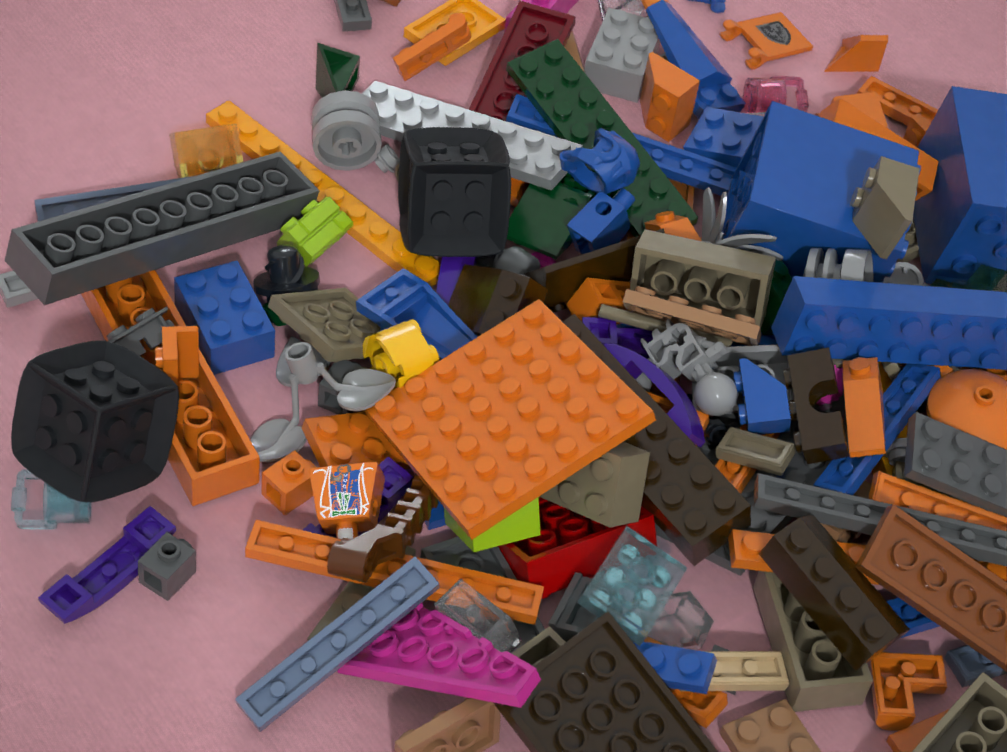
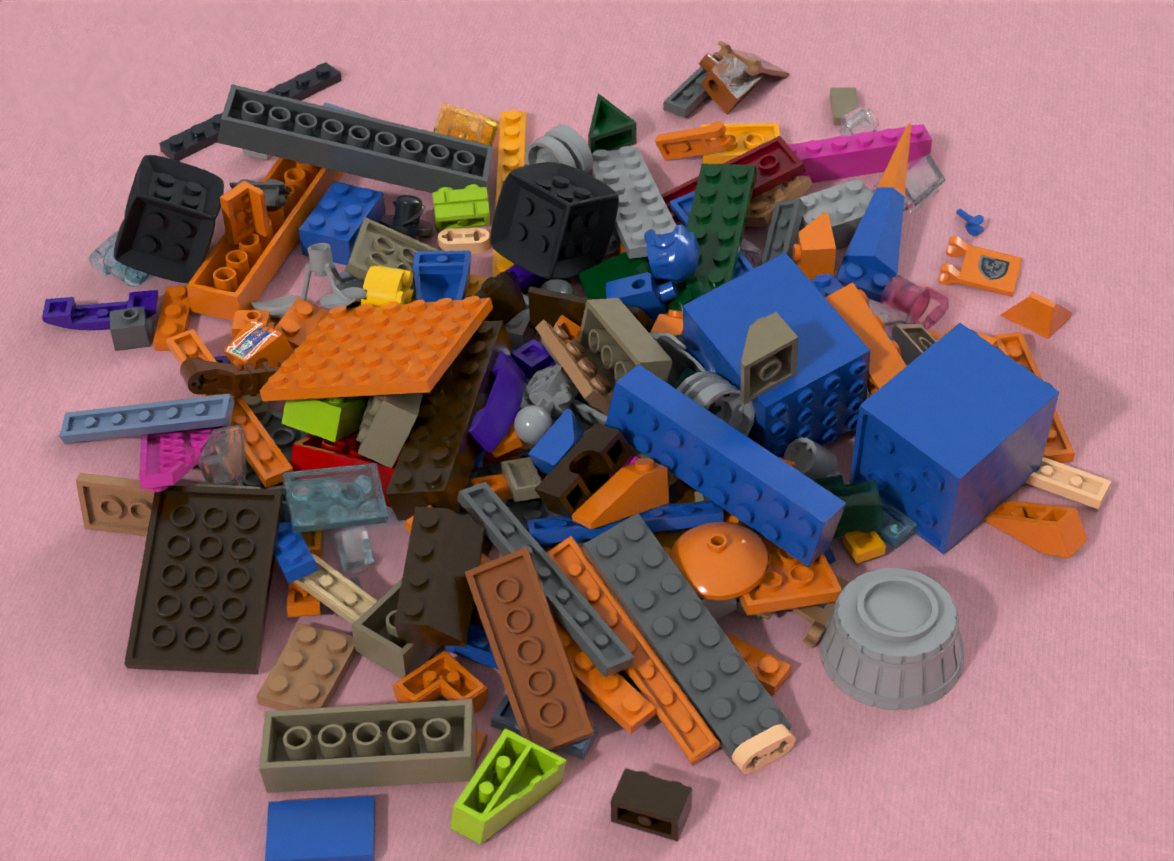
camera: 55 degrees right, 5 degrees down
(192, 525) = (173, 317): none -> orange plate
(345, 262) = (464, 239): none -> light nougat beam
(621, 96) = (783, 229): none -> dark grey plate

